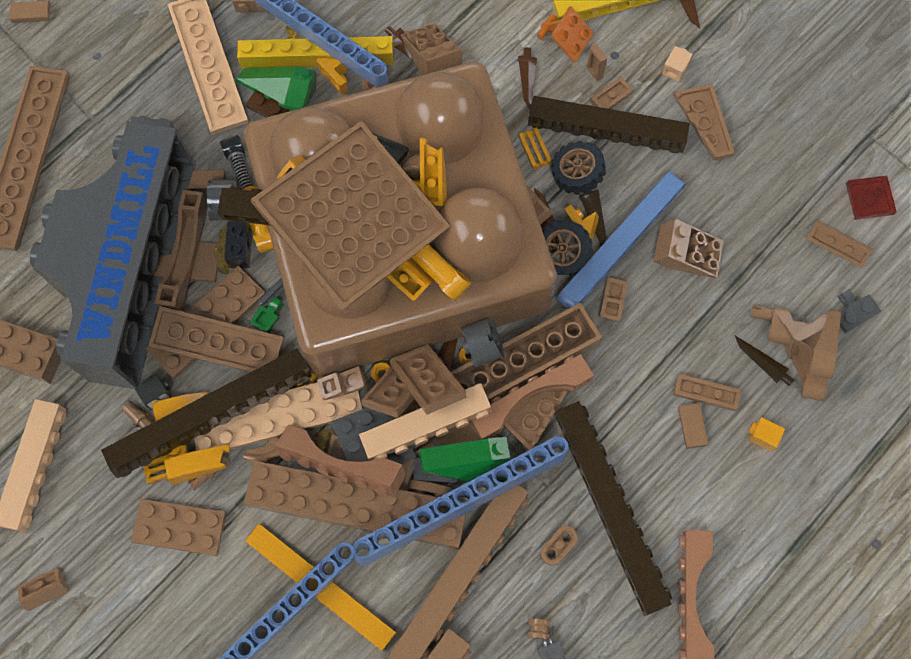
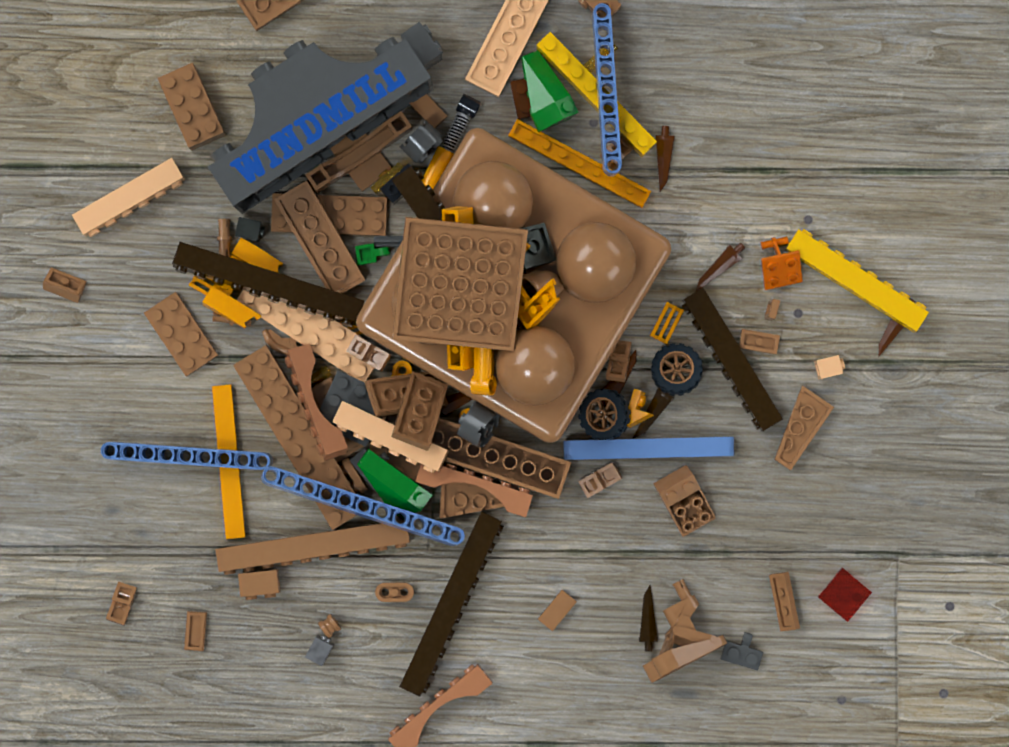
camera: 45 degrees right, 15 degrees up
(333, 72) = (591, 120): light orange slope -> none
(431, 49) = (675, 178): medium nougat slope -> none
(707, 392) = (588, 600): medium nougat plate -> none
(766, 434) = (593, 663): light orange brick -> none

